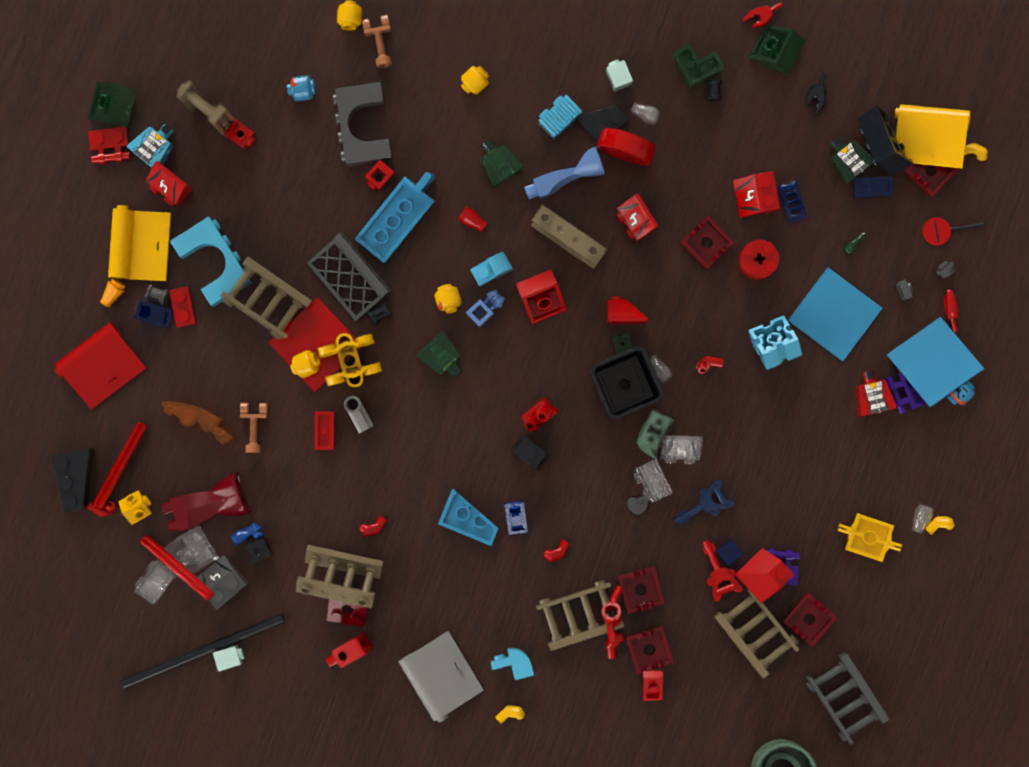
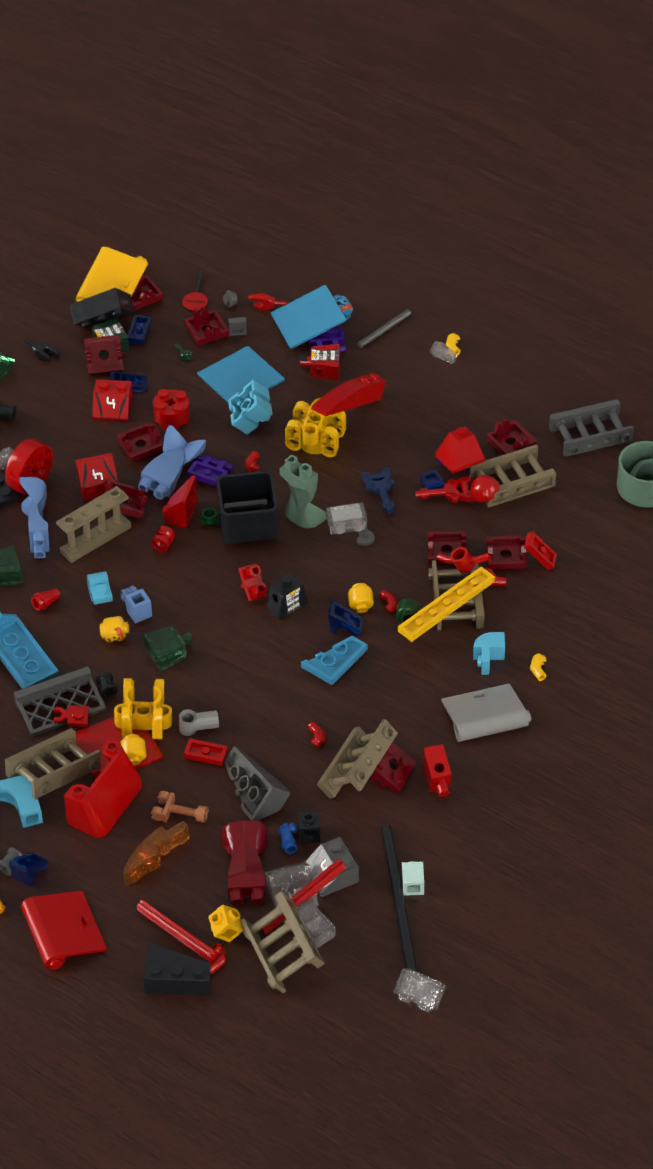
camera: 75 degrees left, 40 degrees down
(108, 695) = (419, 989): none -> clear brick
(134, 575) = (301, 939): none -> dark tan fence
(182, 307) = (38, 844): red plate -> none
(267, 368) = (102, 804): none -> red windscreen
(291, 494) = (256, 787): none -> dark grey wedge
(334, 297) = (75, 716): none -> red plate
(541, 296) = (140, 562): red slope -> none
(543, 574) = (406, 608): none -> dark green head
(549, 613) = (446, 604): none -> yellow plate
(550, 523) = (360, 597): none -> yellow head
(578, 308) = (163, 538): none -> red wheel
(629, 258) = (136, 500): none -> dark red piece
(667, 281) = (164, 471): none -> medium blue hips
(680, 325) = (209, 469): none -> dark purple plate
(680, 447) = (326, 487): clear slope -> none
(720, 612) = (484, 488): none -> red hair
(753, 413) = (314, 430): none -> yellow piece
(806, 162) = (108, 343): none -> dark red piece
(806, 443) = (351, 395): none -> red slope
(869, 537) = (449, 388): yellow plate -> none
(908, 257) = (207, 319): none -> dark red piece
(947, 445) = (384, 328): none -> dark grey bar

